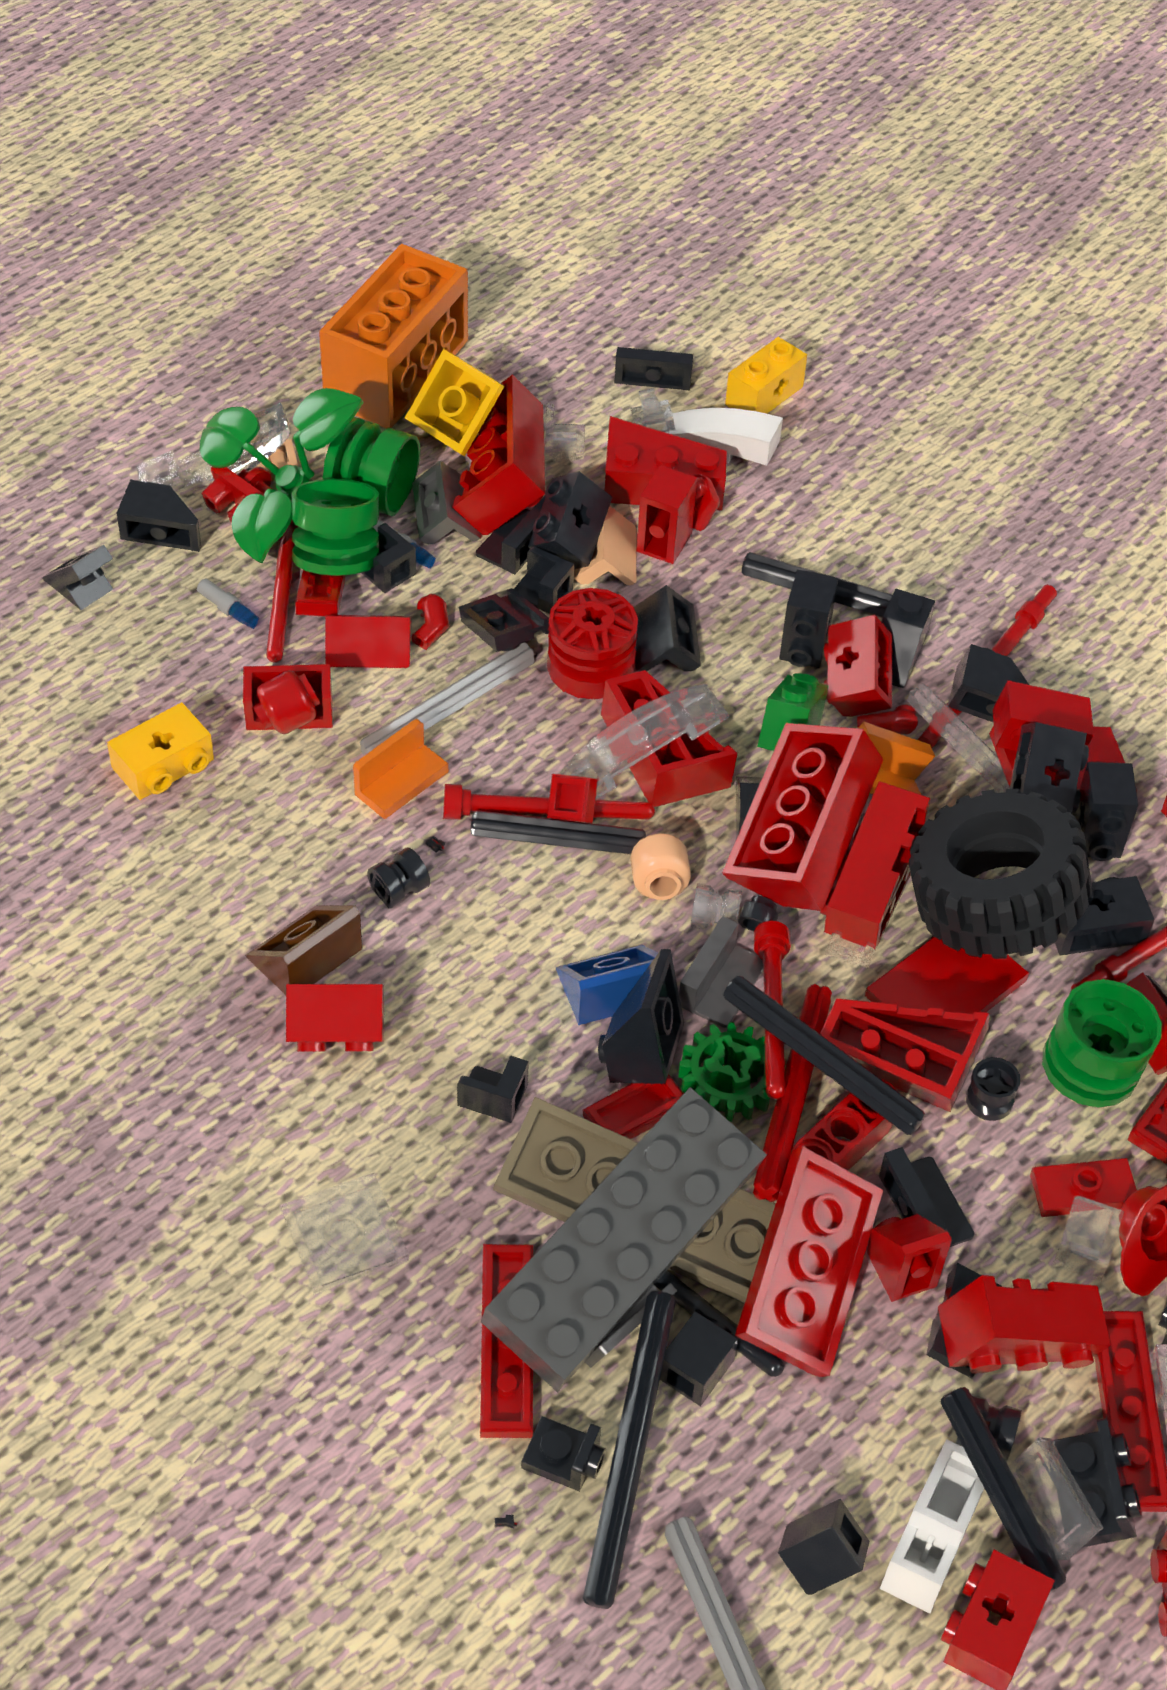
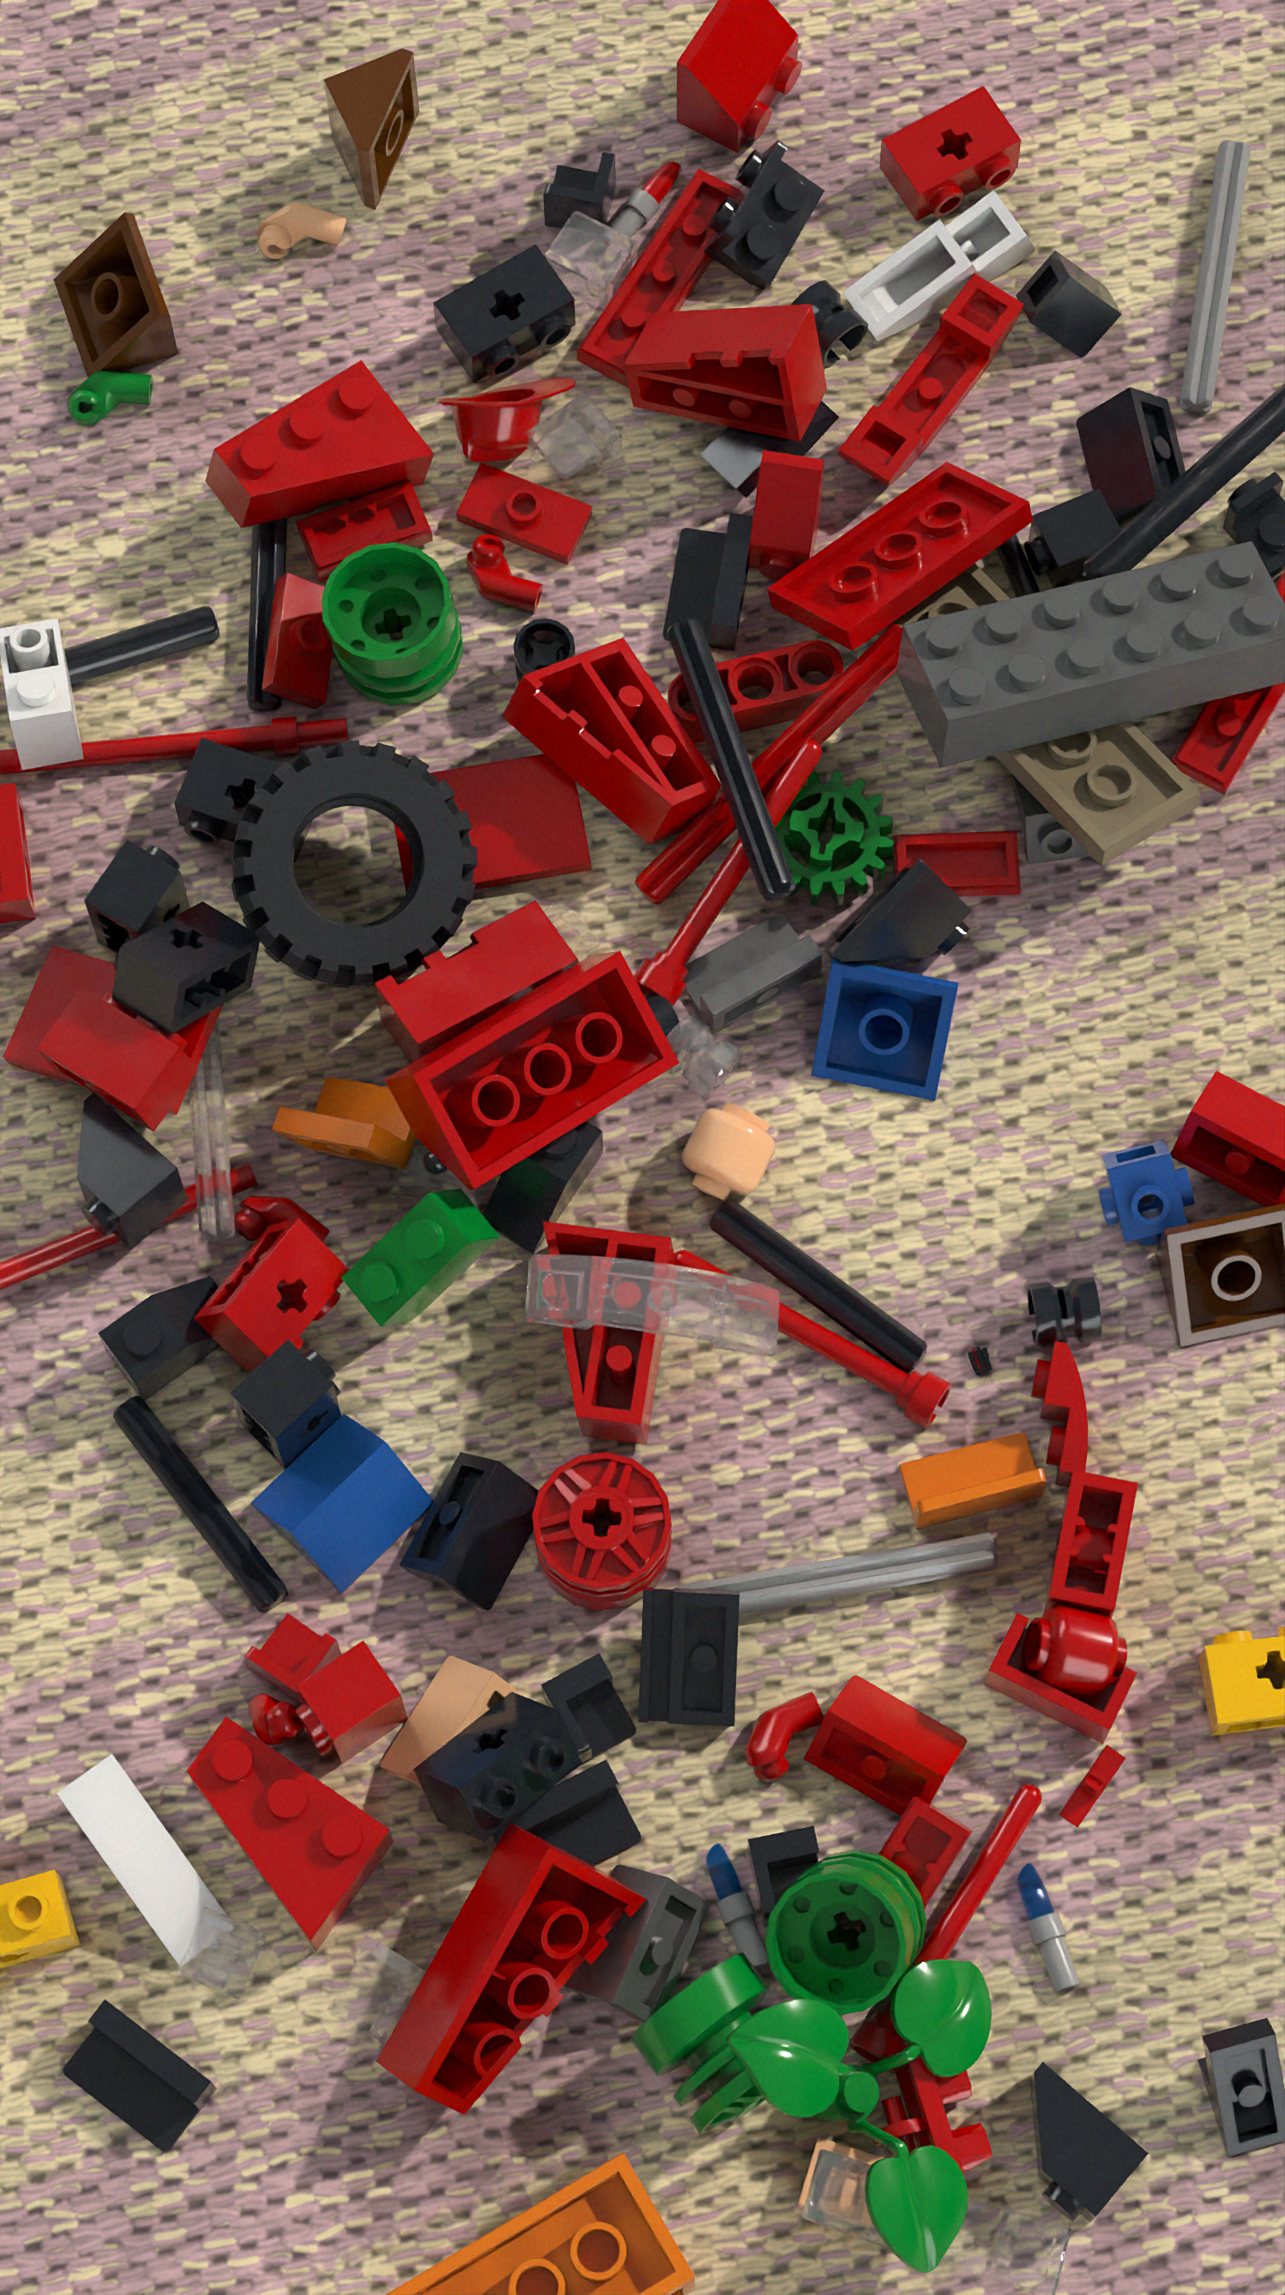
camera: 145 degrees left, 20 degrees up
(237, 687) = (1092, 1786): none -> red piece
(307, 757) = (1091, 1542): none -> red brick
(364, 826) = (1063, 1401): none -> red slope
(387, 953) = (1143, 1172): none -> blue brick
(454, 402) = (522, 2088): yellow slope -> none
(494, 1092) = (1109, 964): black panel -> none
(572, 798) = (786, 1291): red tile -> none
(695, 1454) = (1130, 450): none -> black panel
(715, 533) = (292, 1656): none -> red panel
(746, 614) = (344, 1501): none -> blue slope
(879, 1420) = (935, 383): none -> red slope
(1001, 1485) = (864, 250): black axle -> none
(1055, 1498) = (815, 221): clear tile -> none
(1065, 1133) = (495, 579): none -> red arm

